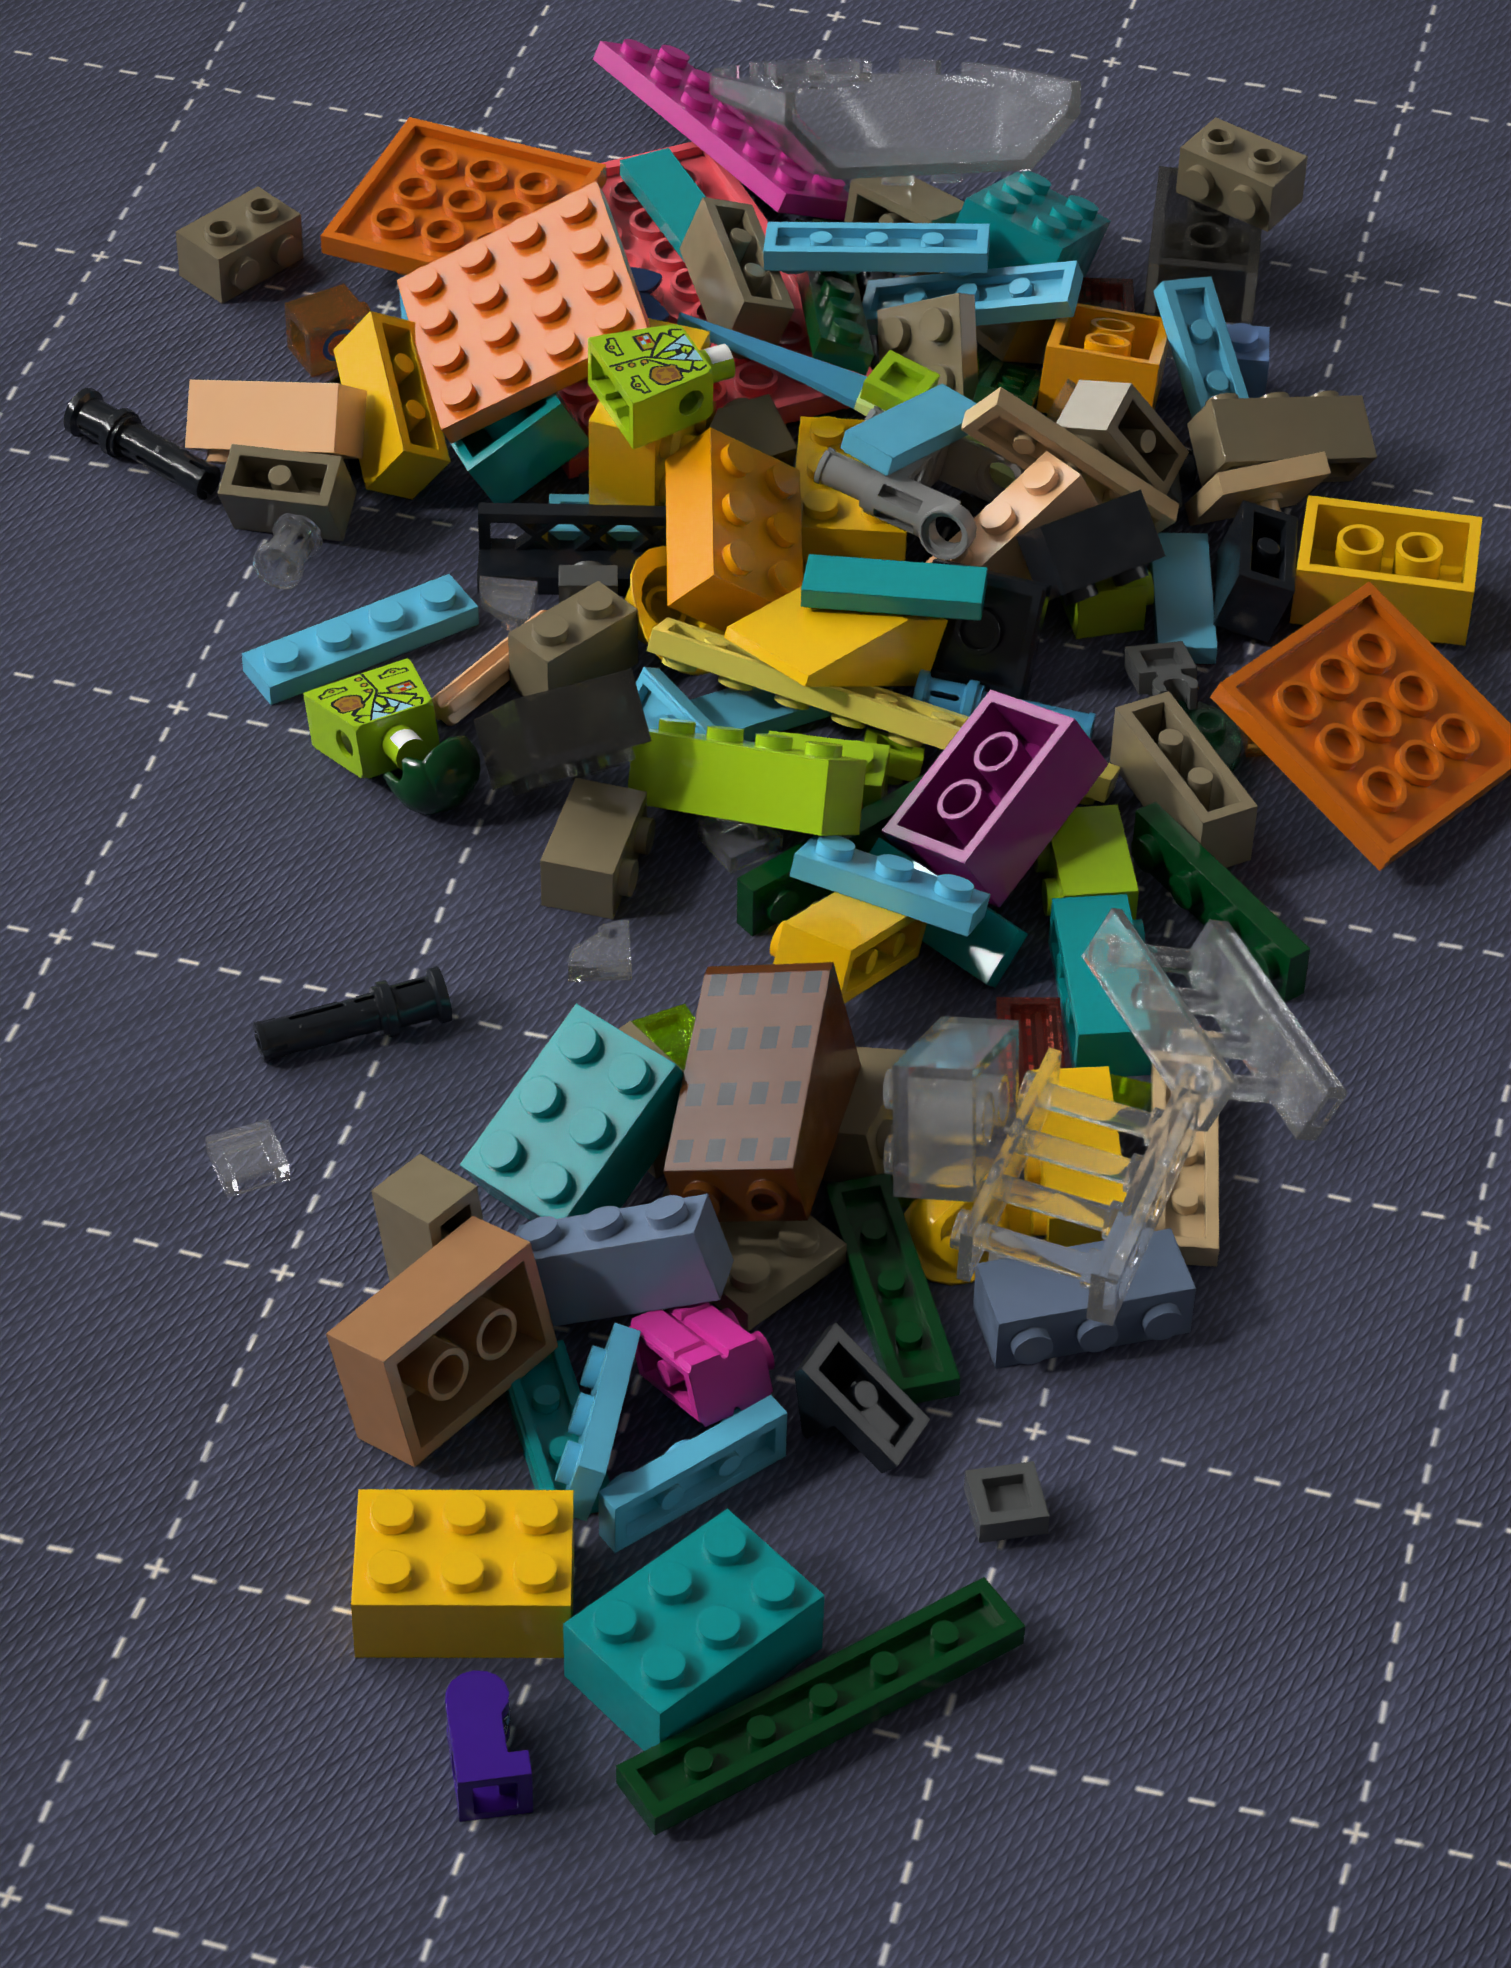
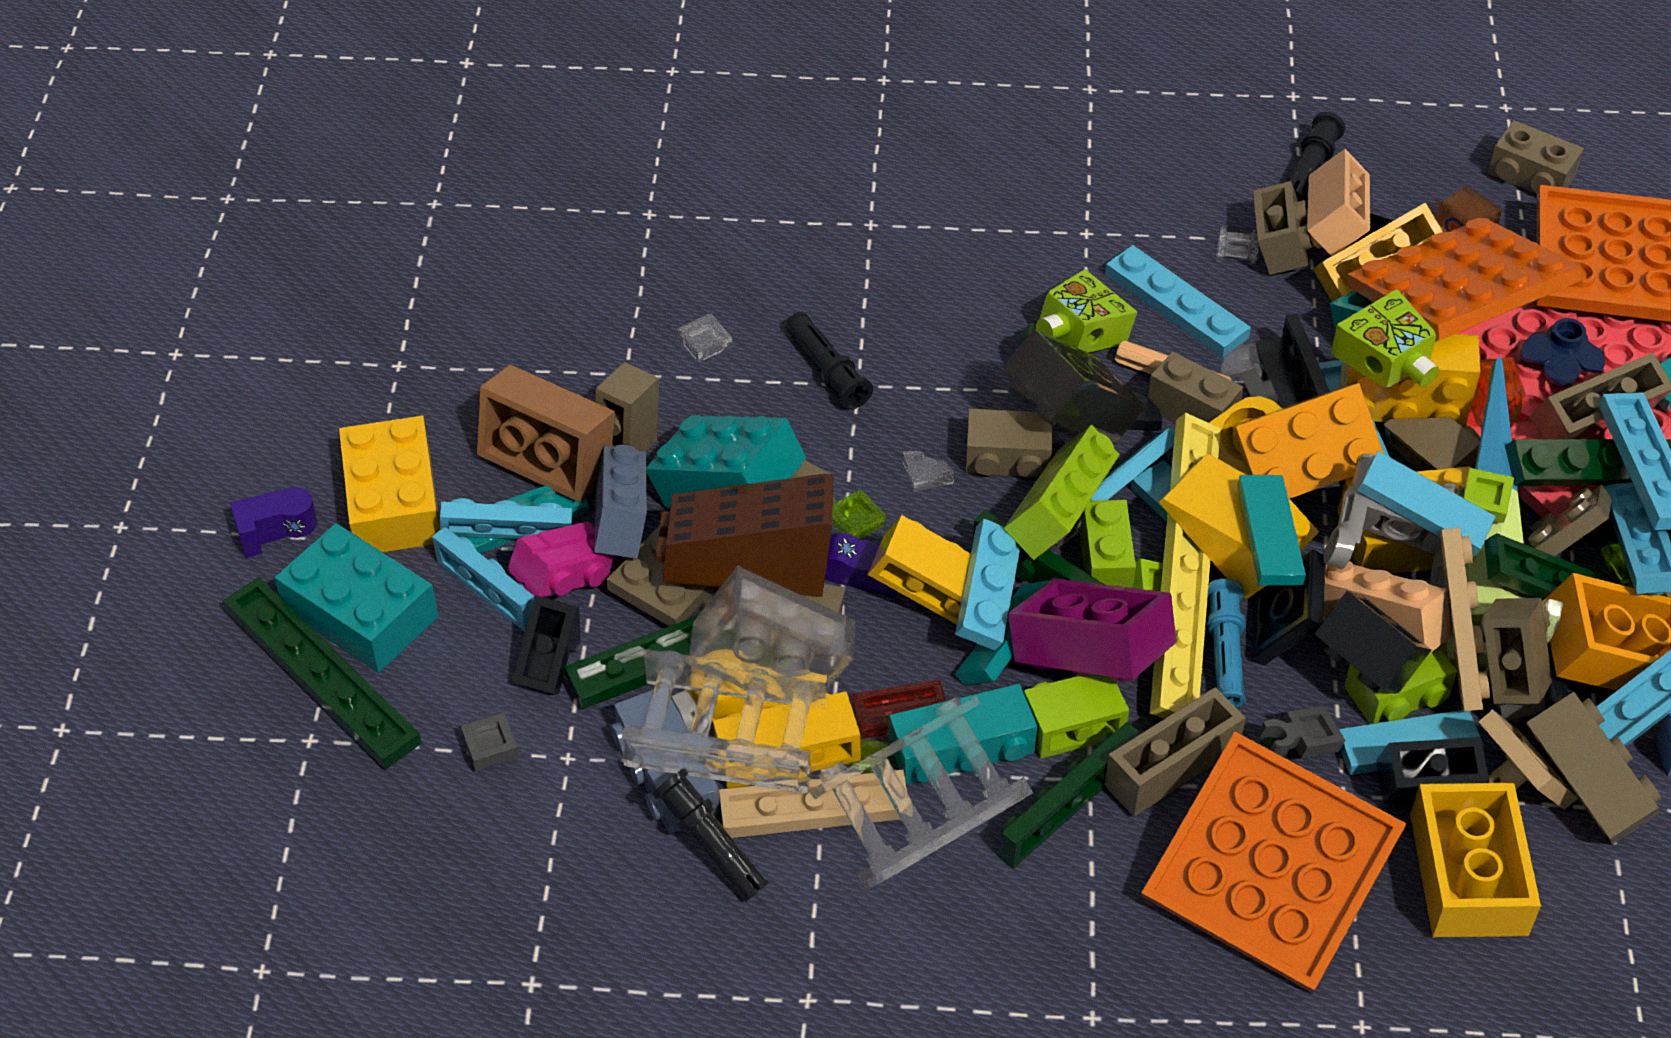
camera: 80 degrees right, 5 degrees up
(1225, 1249) = (696, 815): none -> black pin

